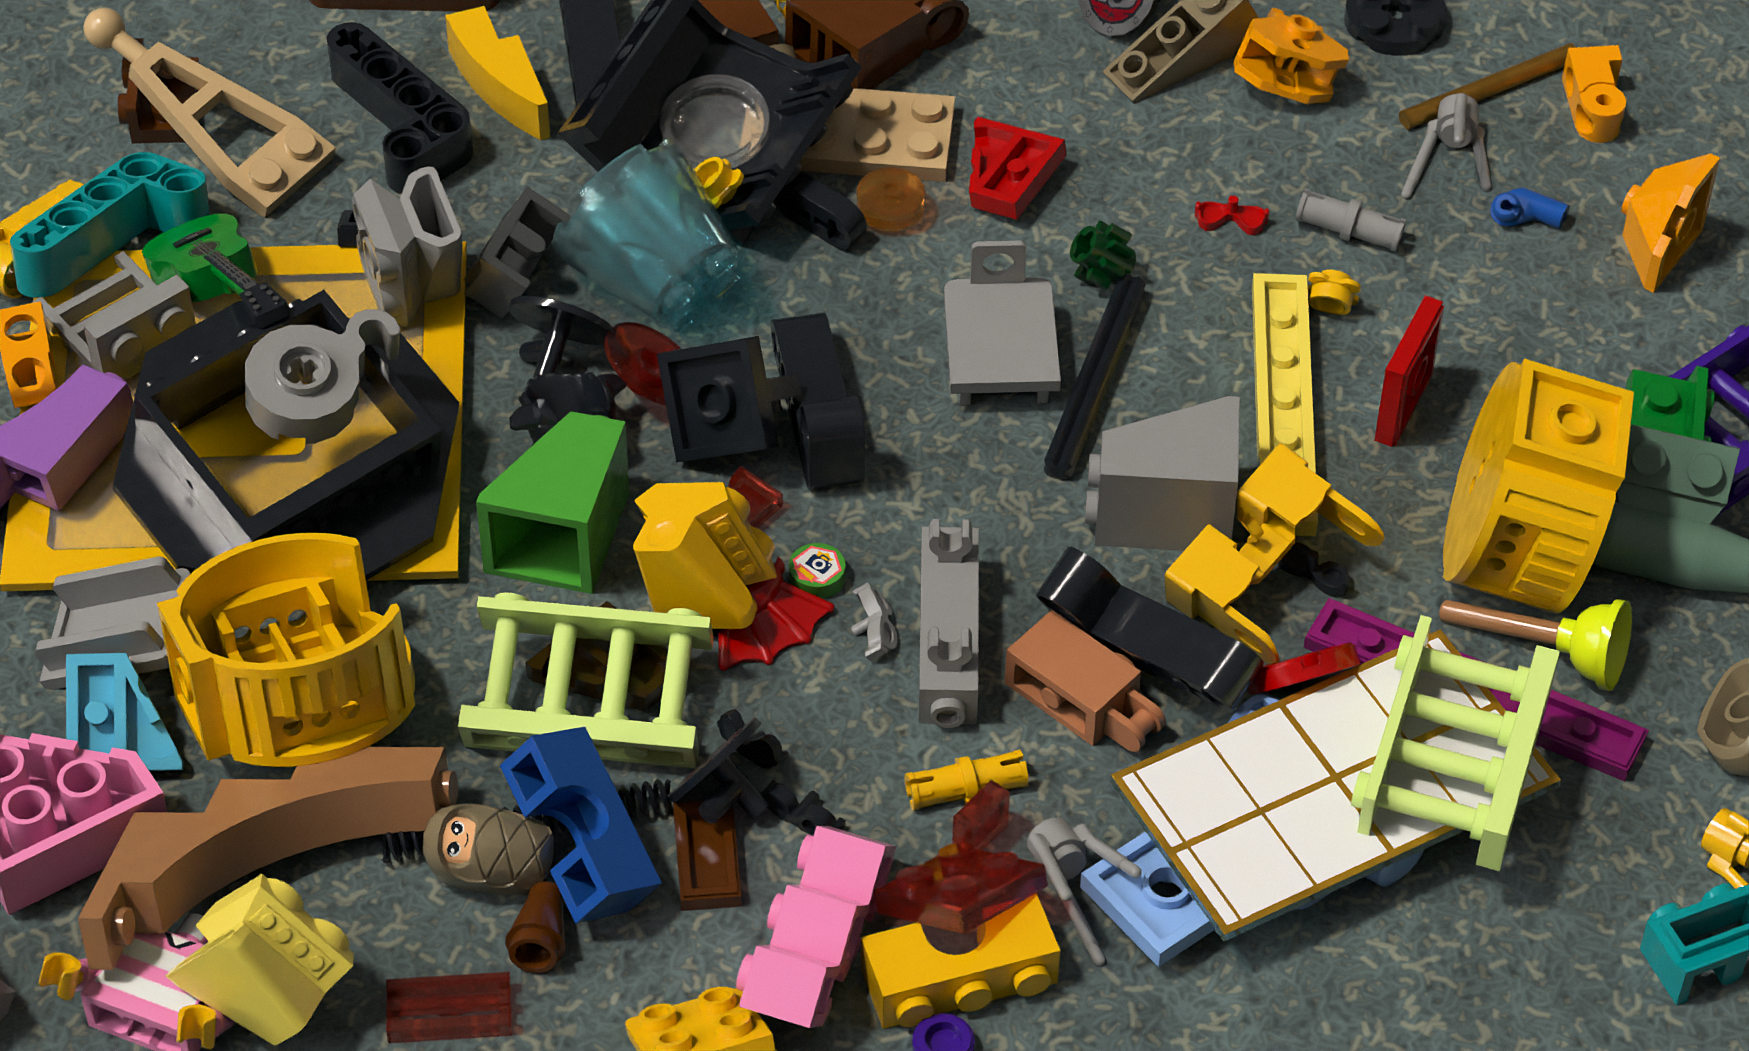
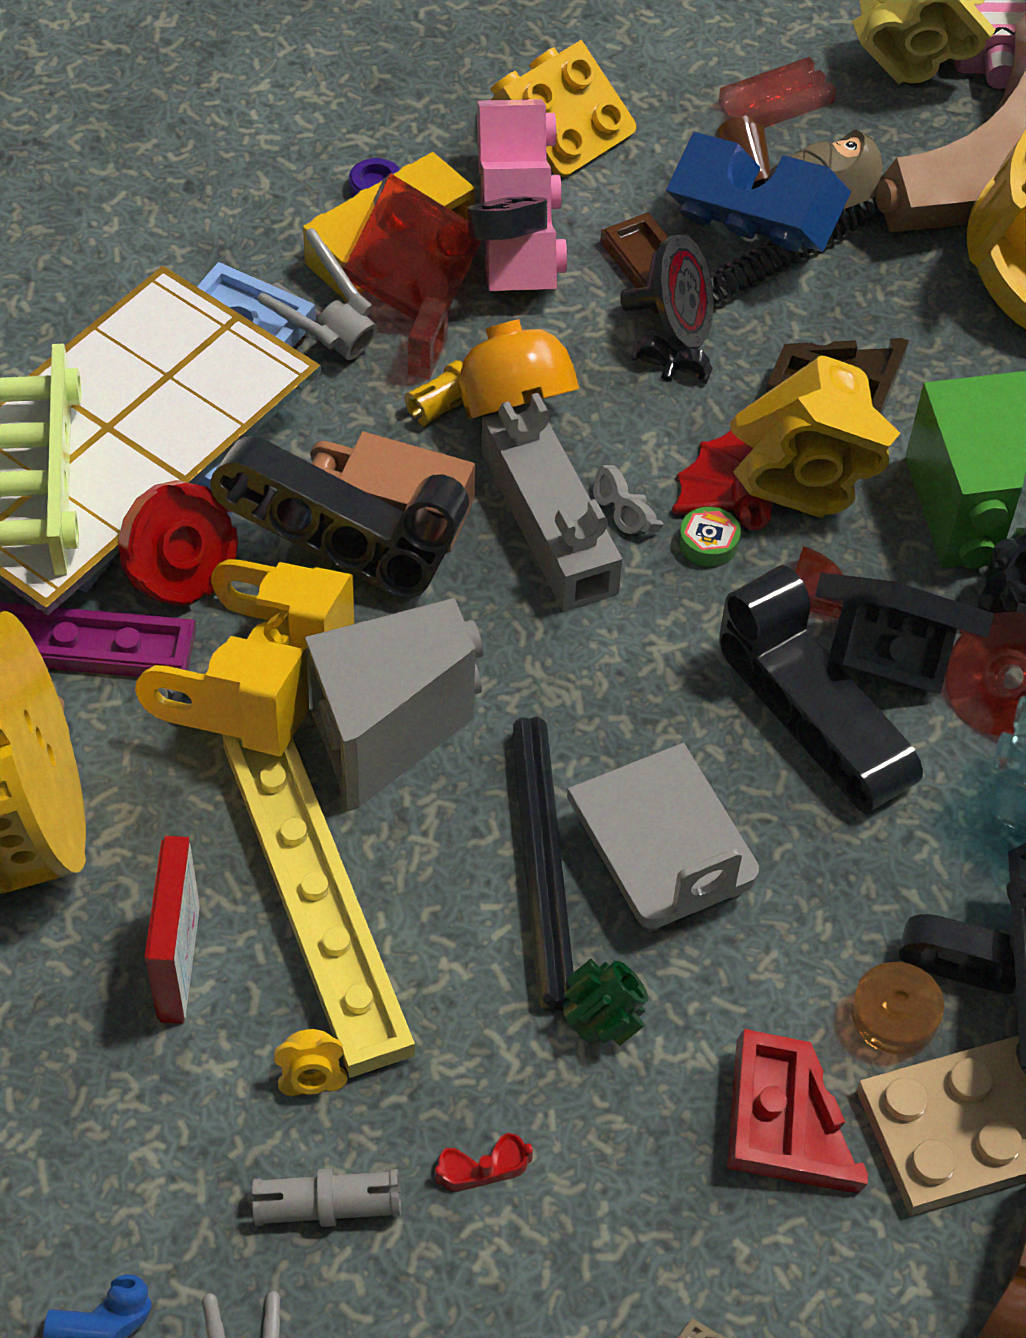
camera: 155 degrees right, 5 degrees up
(616, 738) = (835, 295): yellowish green fence -> none
(803, 815) = (580, 311): black piece -> none
(849, 837) = (507, 218): none -> black beam
(927, 712) = (513, 368): none -> light orange cylinder

